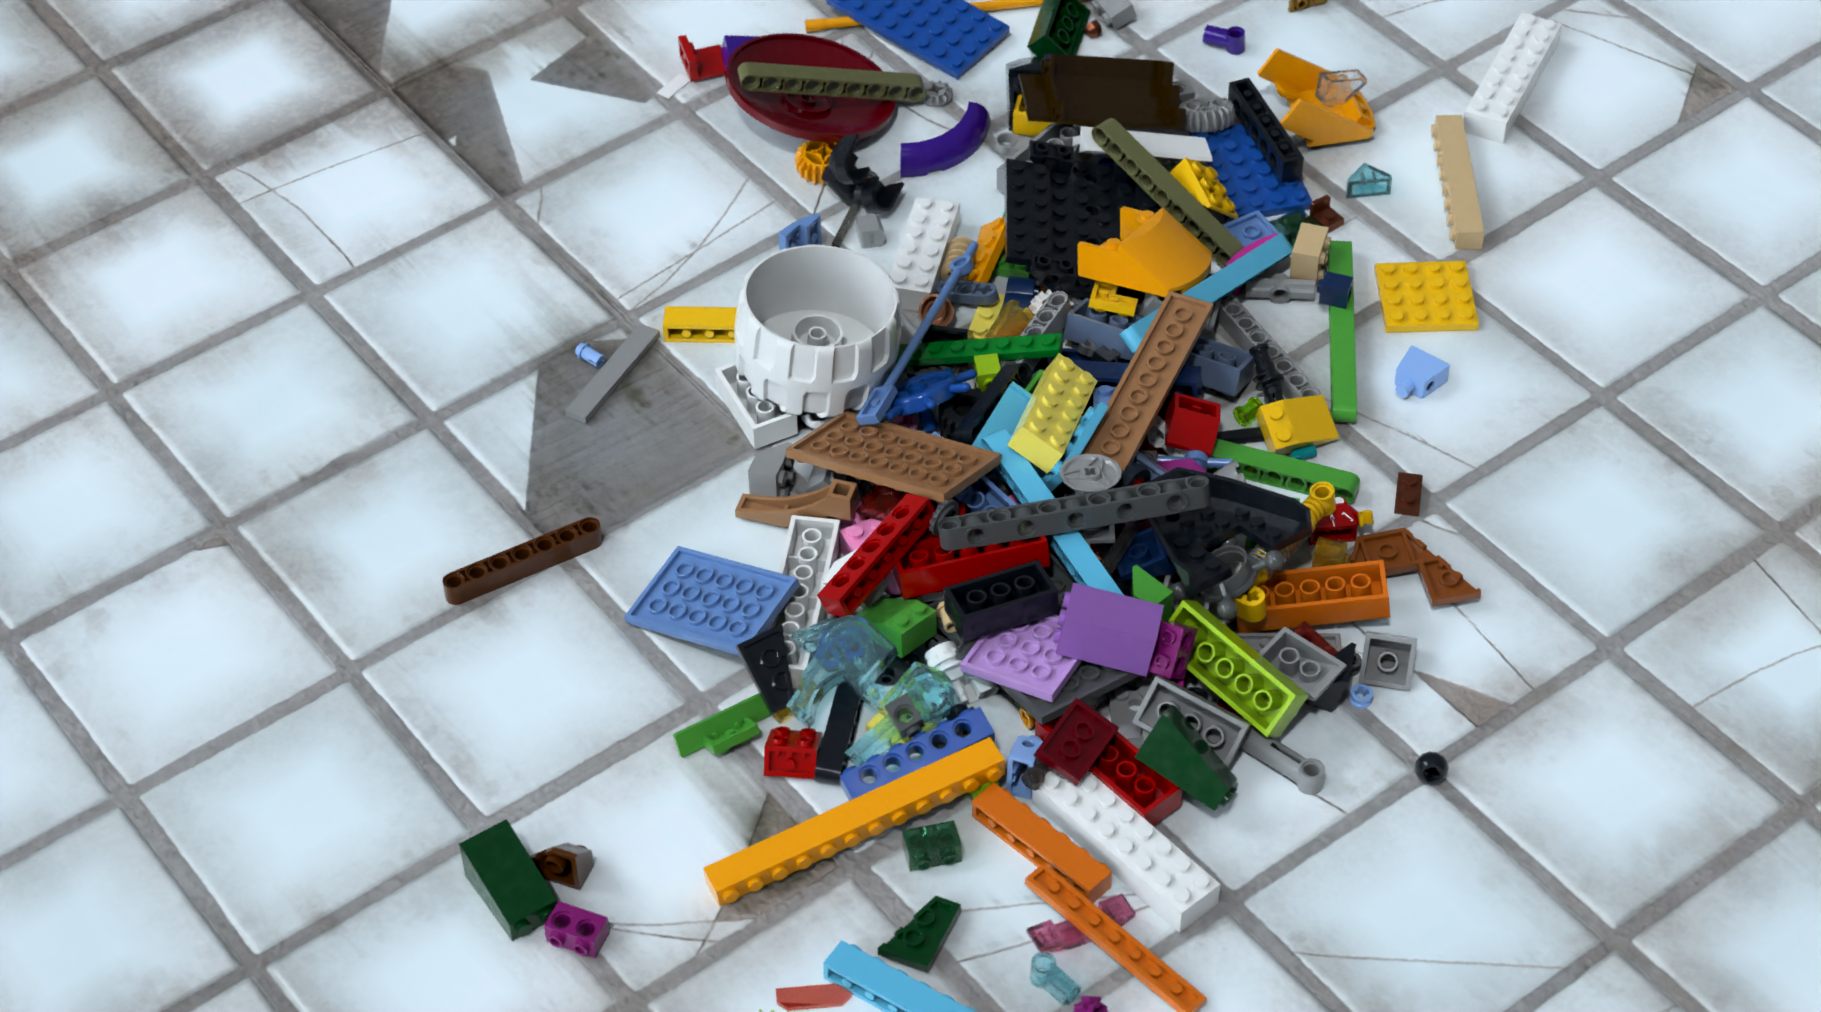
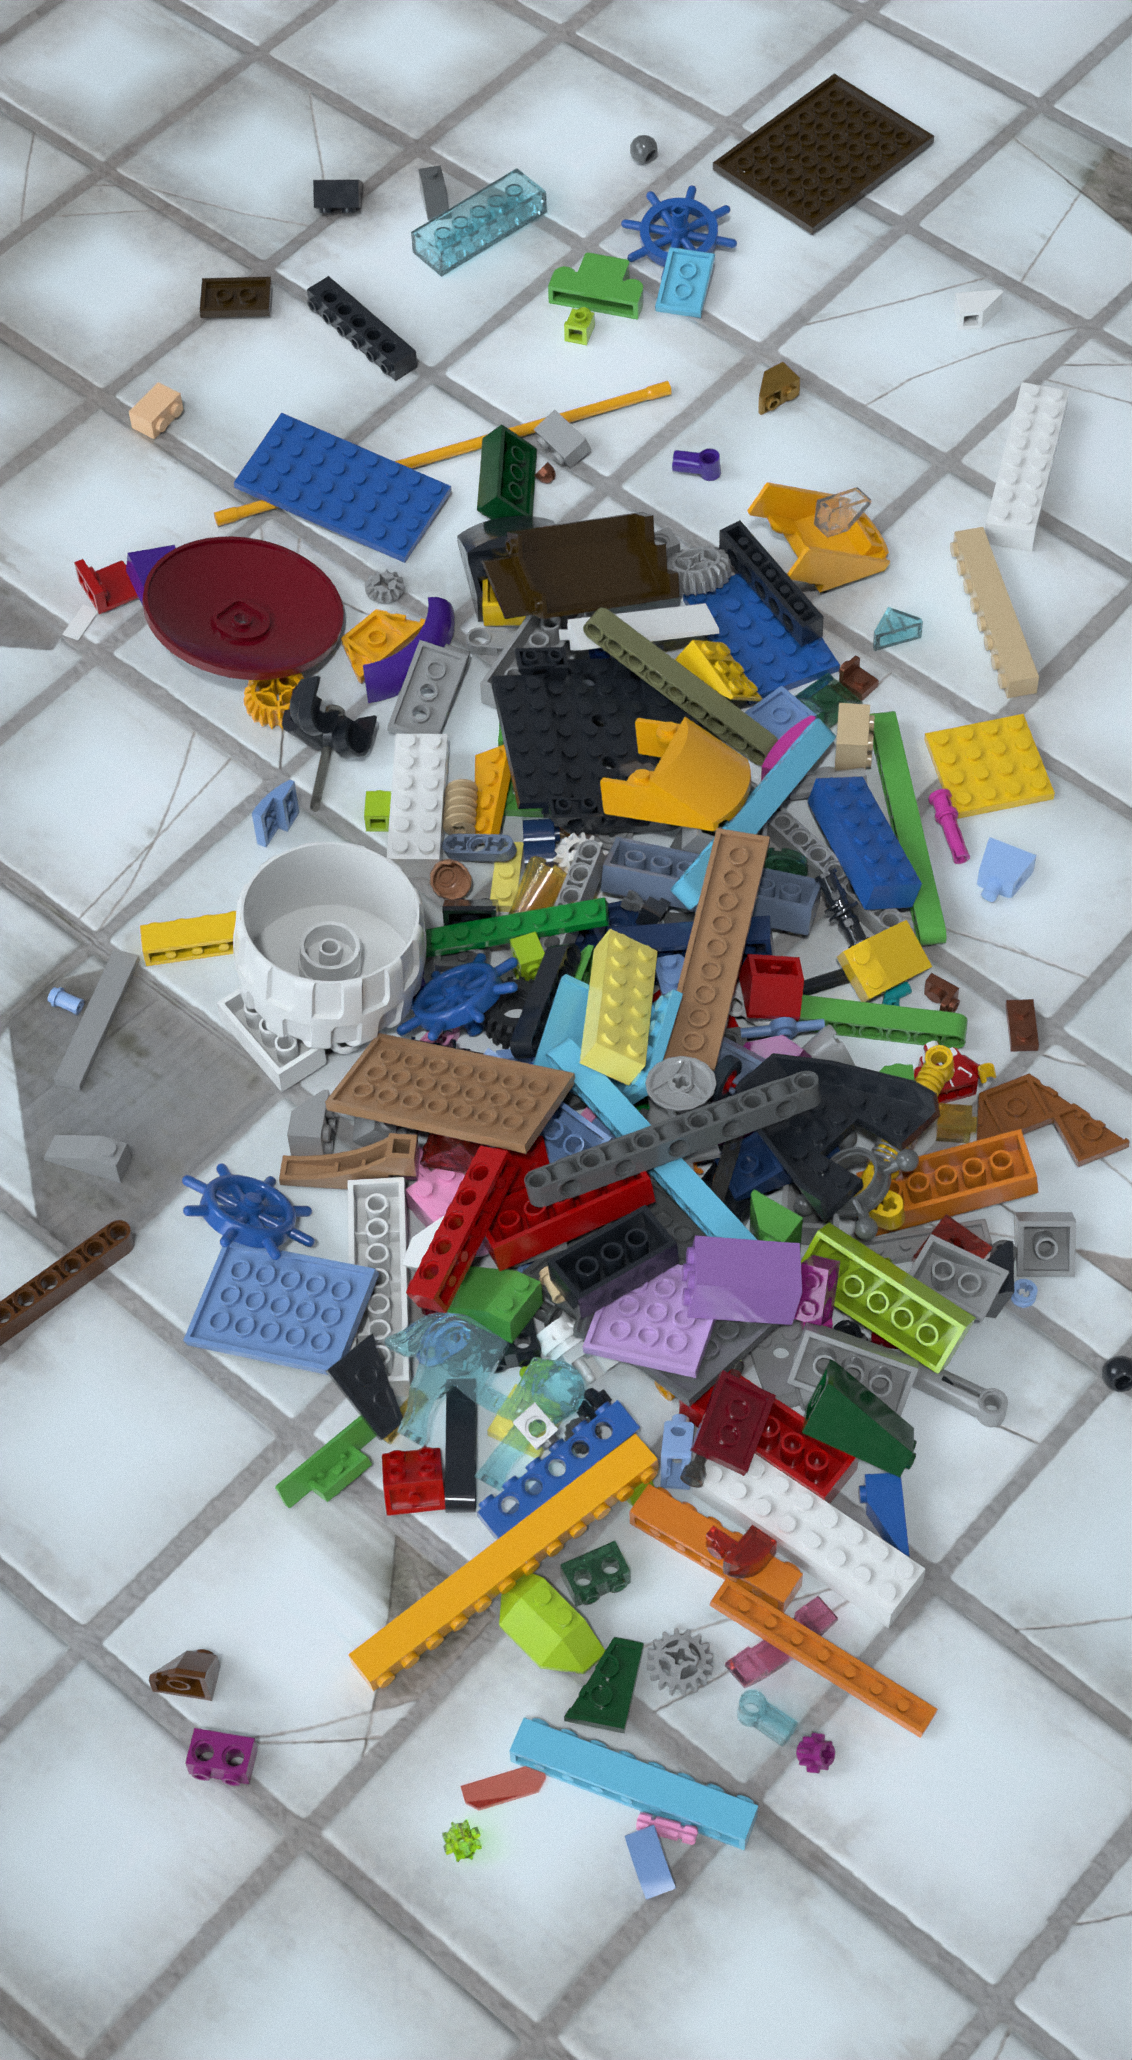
camera: 10 degrees left, 10 degrees up
(507, 880) = (131, 1712): dark green slope -> none
(583, 469) = (91, 1155): none -> light grey slope
(701, 524) = (247, 1211): none -> blue piece
(831, 82) = (266, 599): olive beam -> none
(870, 231) = (350, 783): light grey piece -> none
(881, 879) = (548, 1627): none -> lime wedge
(882, 396) = (420, 1013): medium blue bar -> none
(886, 252) = (377, 811): none -> lime brick
(918, 127) = (378, 638): none -> light orange wing
(946, 509) = (529, 1161): dark grey gear -> none
(958, 154) = (432, 669): none -> light grey hinge
(988, 924) = (669, 1658): none -> light grey gear
(1062, 847) = (744, 1557): none -> clear red brick
(1105, 298) = (642, 840): yellow plate -> none
(1198, 834) = (885, 1508): none -> blue slope
(1226, 334) = (787, 861): none -> clear green plate
(1247, 412) = (826, 950): clear neon green bush -> none
(1299, 332) = (864, 843): none -> blue brick
(1335, 290) = (892, 781): dark blue brick -> none
(1342, 456) = (942, 992): none -> copper bracket
(1379, 328) = (947, 817): none -> dark pink pin

